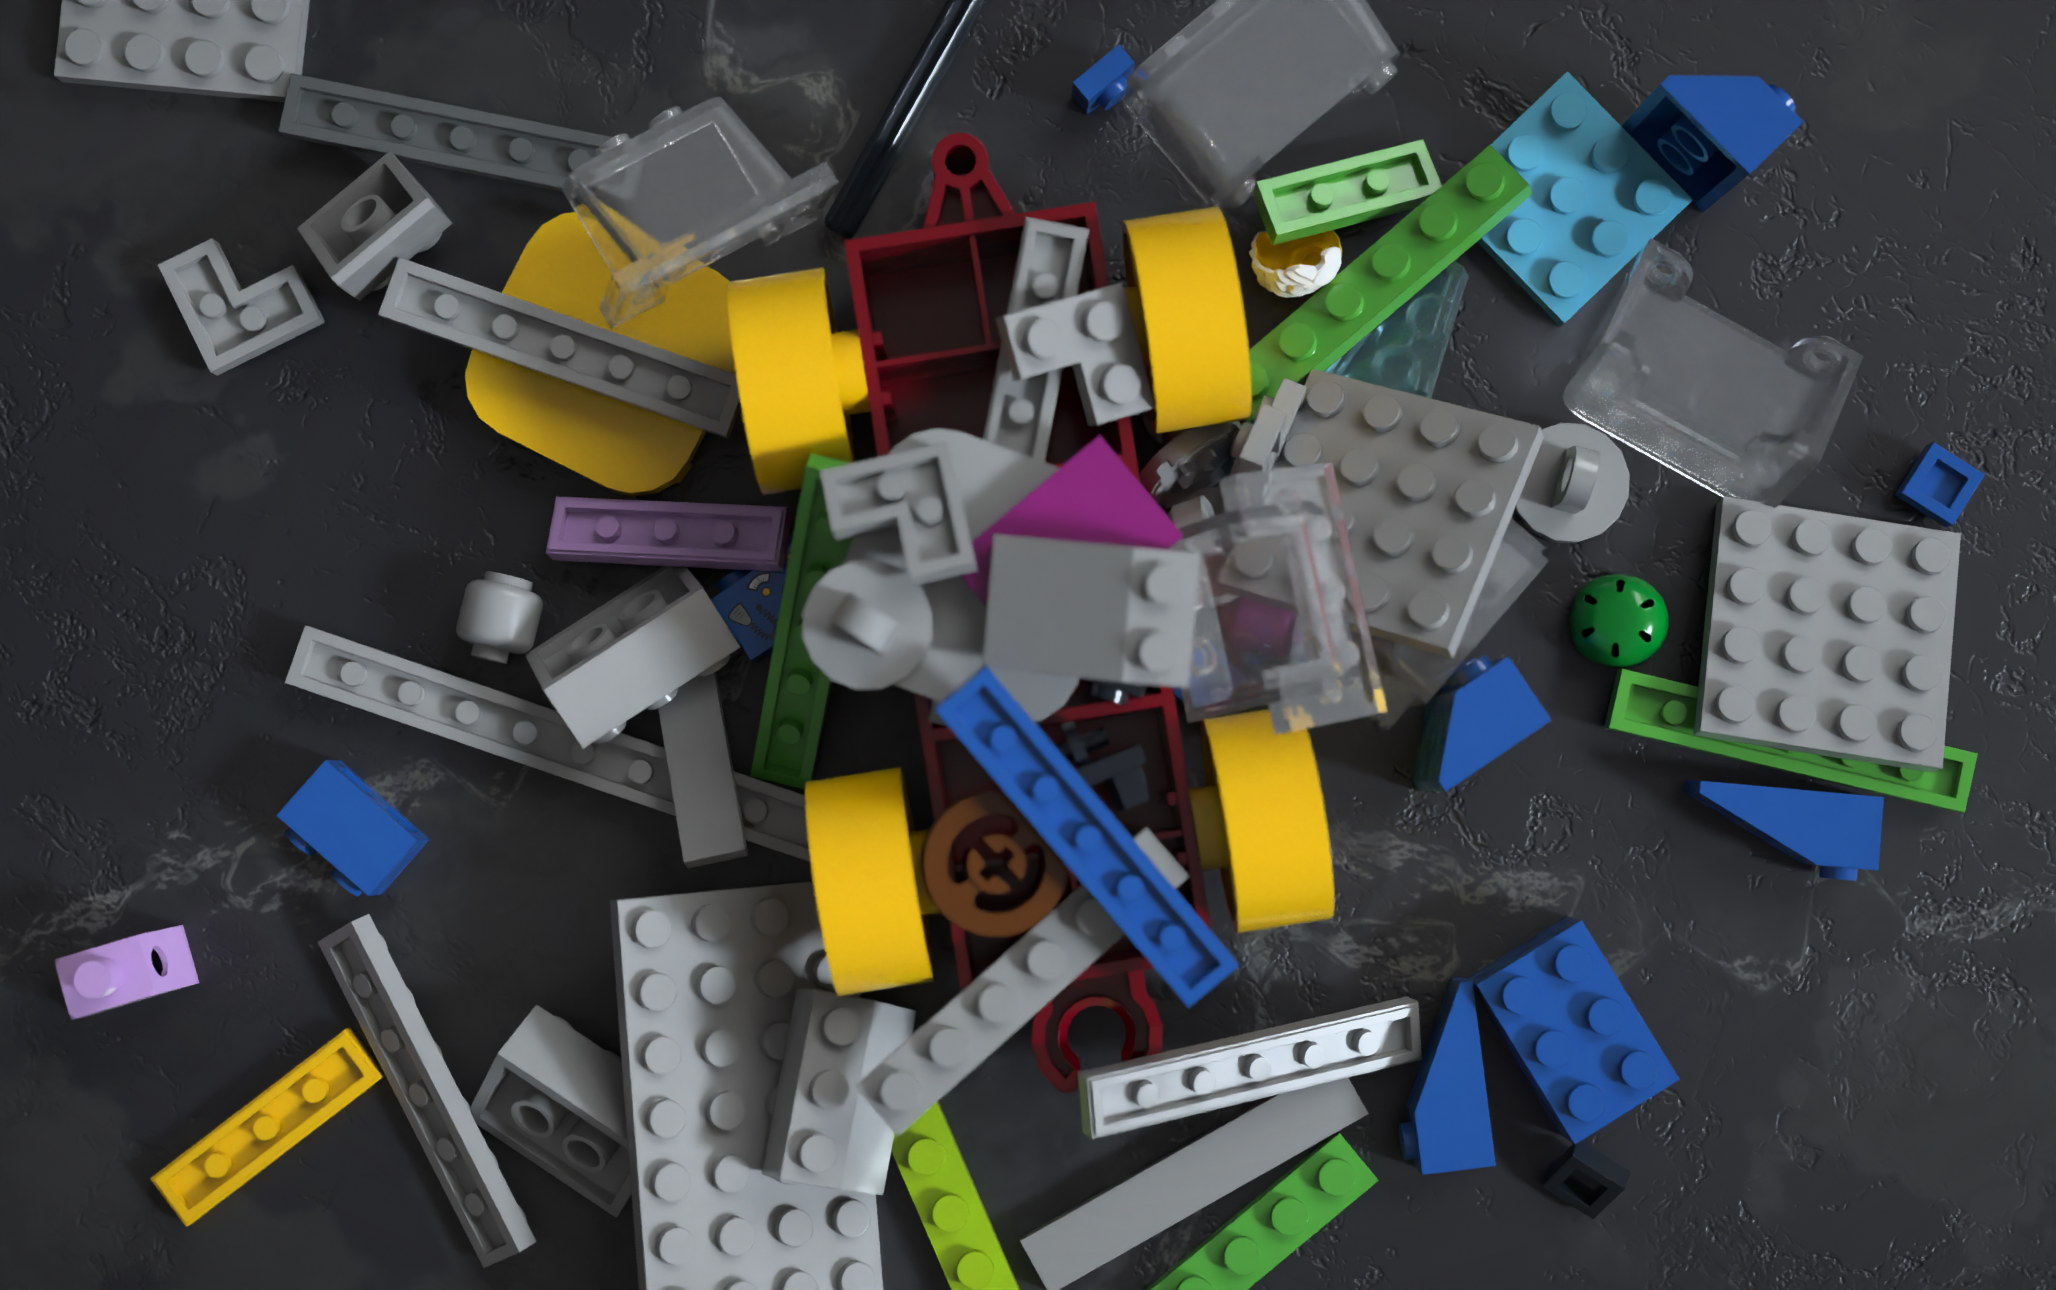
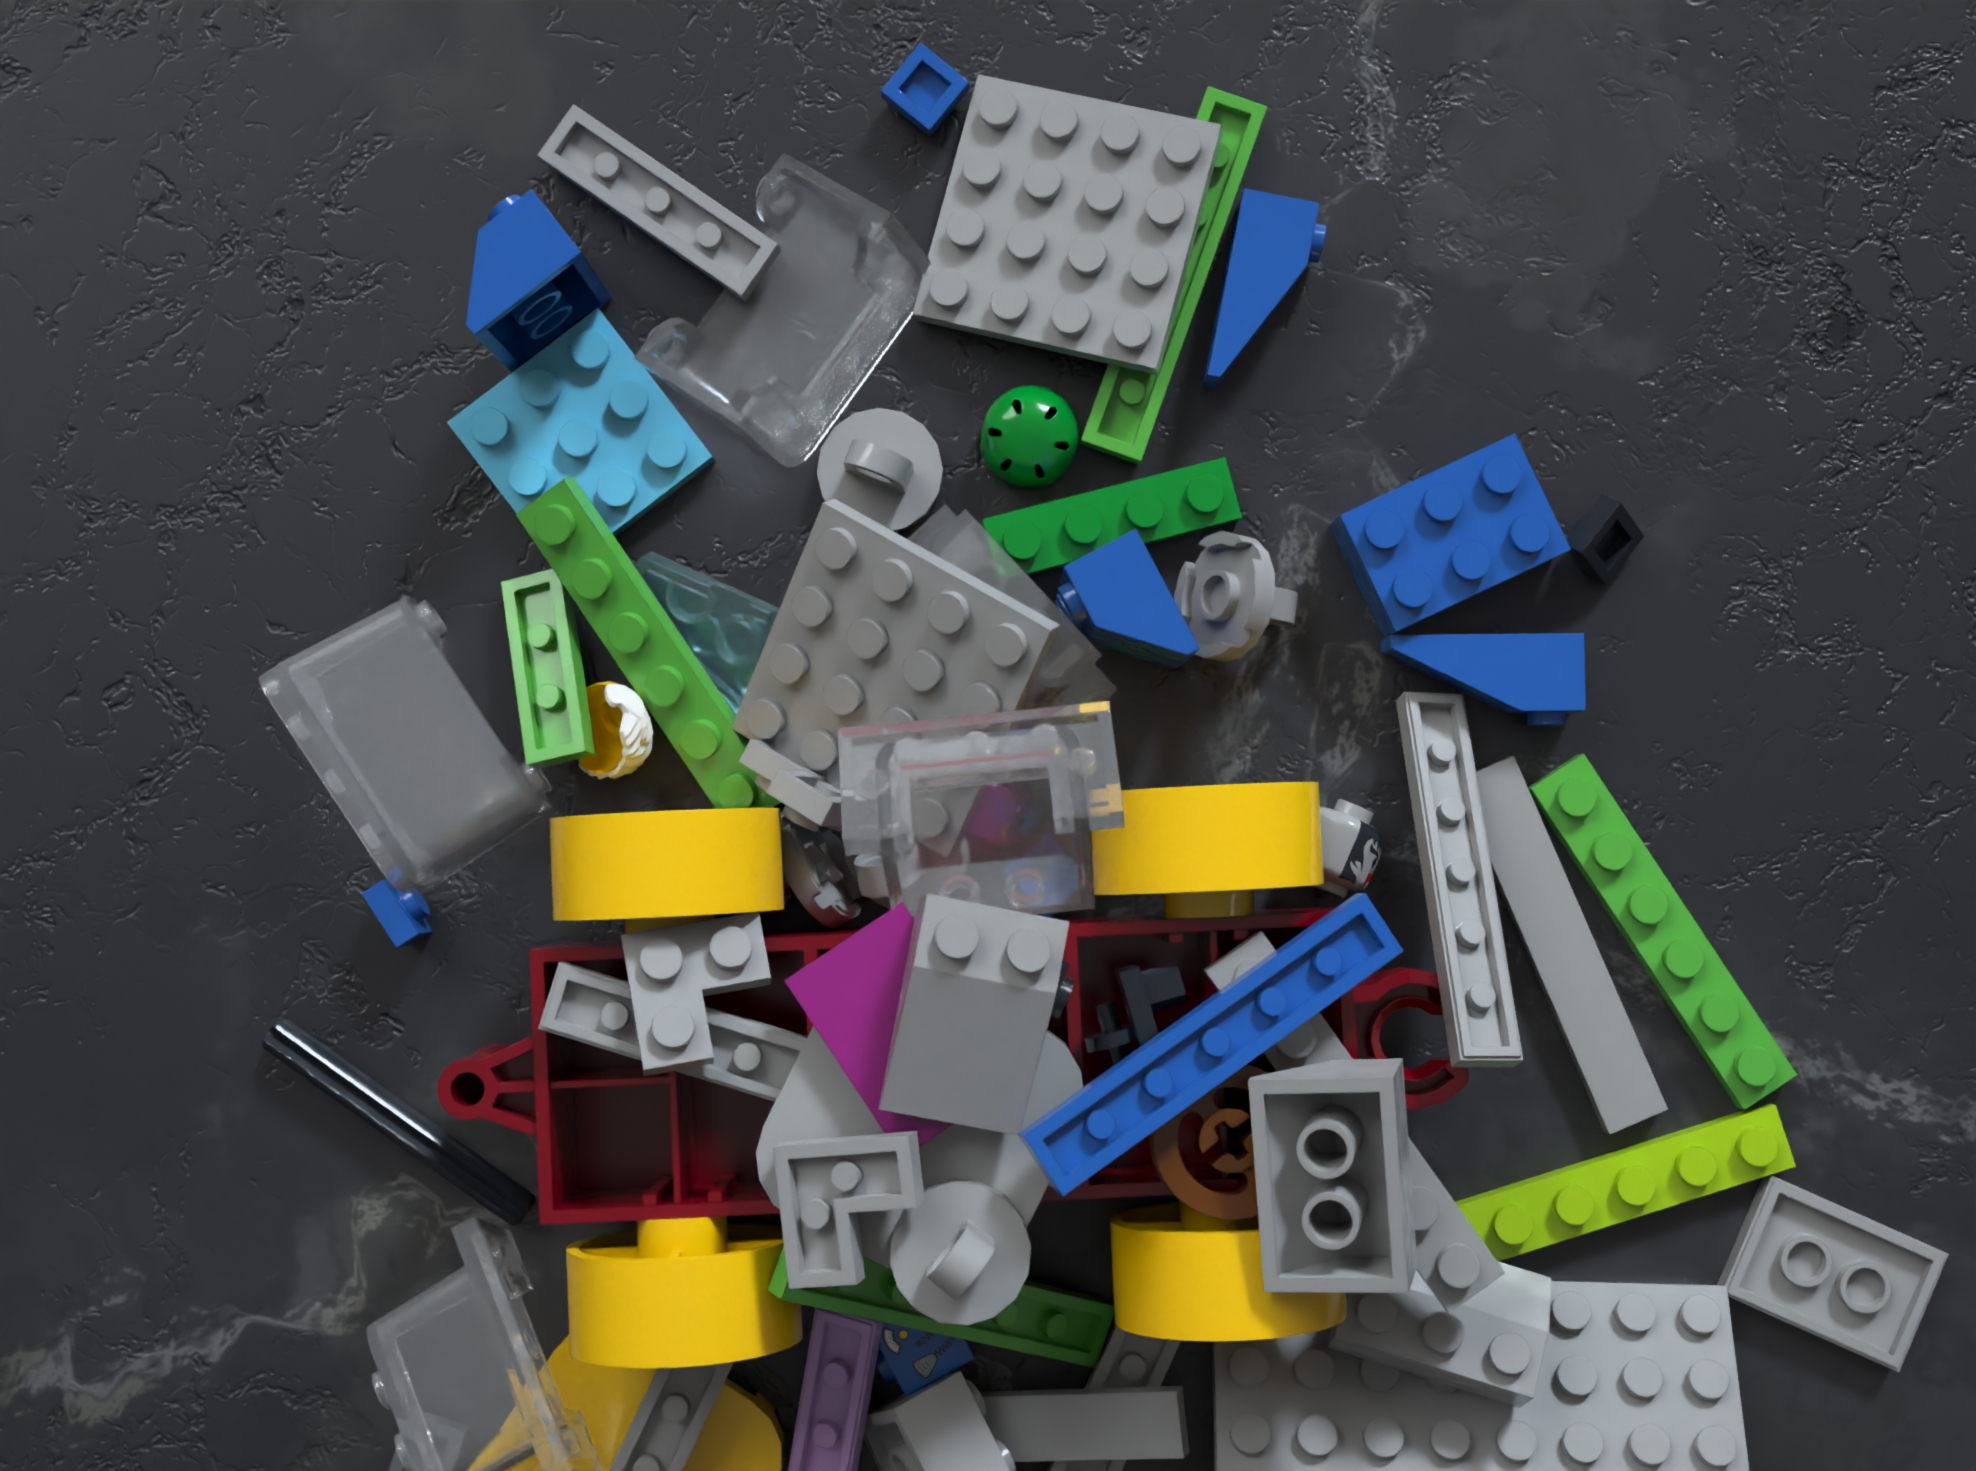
camera: 80 degrees left, 0 degrees up
(975, 961) = (1334, 1177): none -> light grey slope
(1266, 958) = (1348, 848): none -> light grey head
(1490, 826) = (1231, 596): none -> light grey tile
(1566, 745) = (1156, 506): none -> green plate
(1800, 245) = (659, 202): none -> light grey plate

